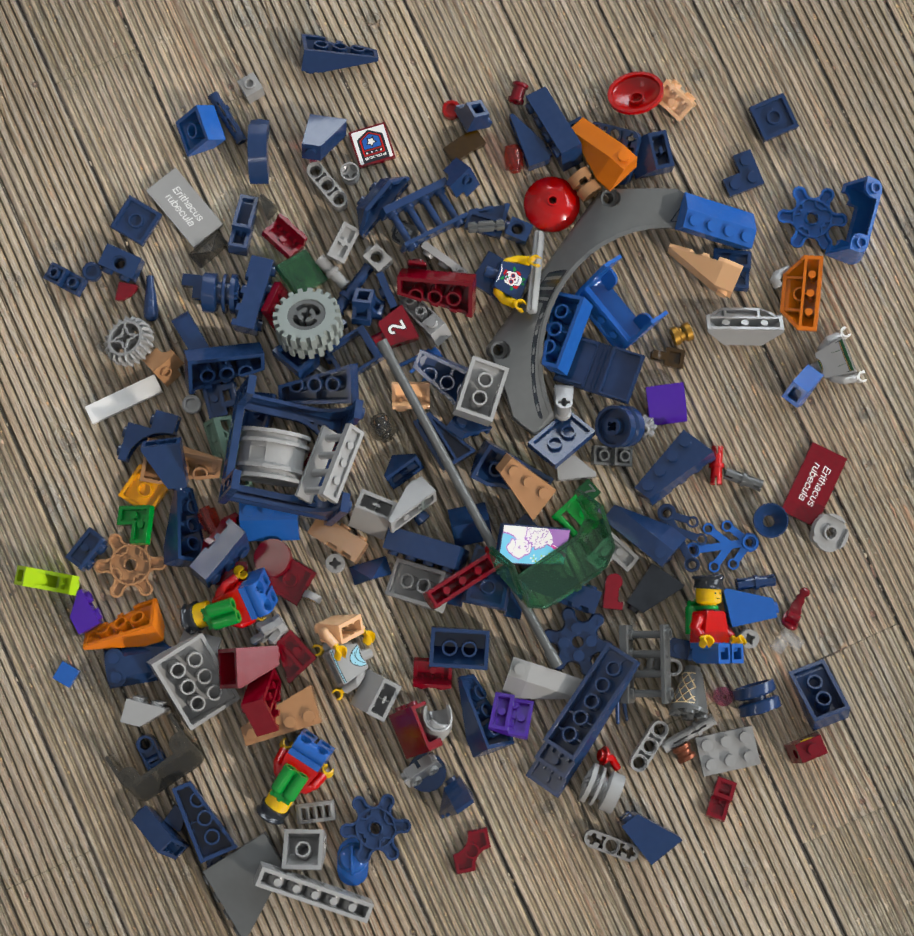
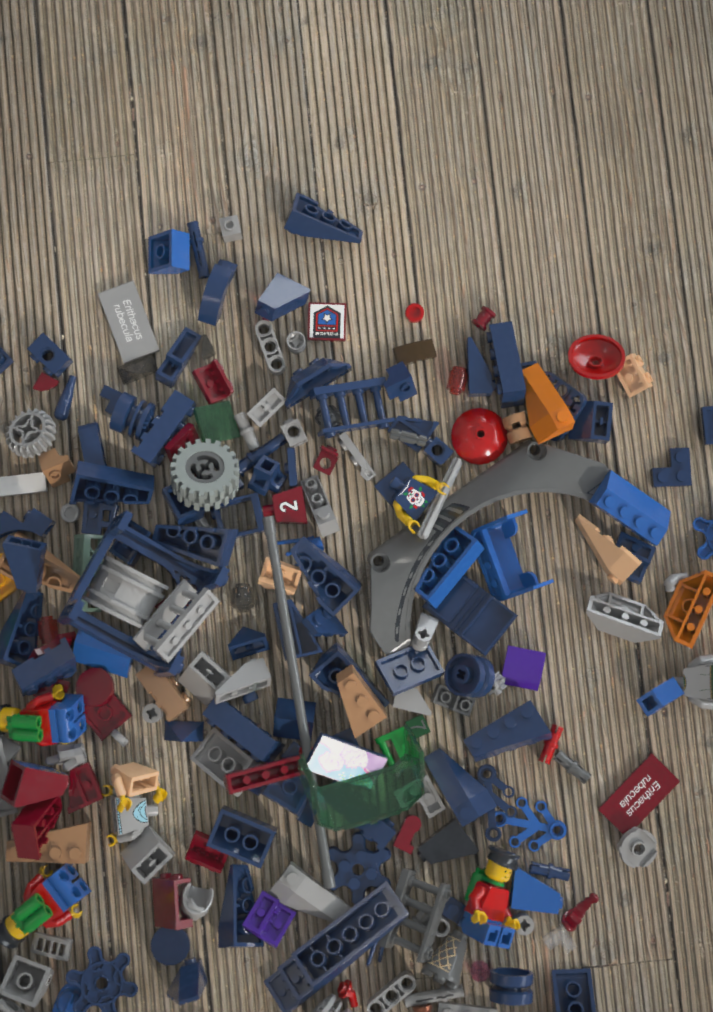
camera: 20 degrees right, 0 degrees up
(92, 271) = (20, 353): dark blue tile -> none
(136, 221) = (78, 319): dark blue plate -> none
(429, 766) = (157, 945): light grey hinge -> none
(439, 288) = (348, 485): dark red wedge -> none
(473, 115) = (432, 326): dark blue brick -> none
(480, 391) = (346, 597): light grey slope -> none
(671, 357) = (543, 624): dark brown plate -> none
(681, 334) = (560, 604): pearl gold wheel -> none
(779, 516) = (594, 816): dark blue piece -> none

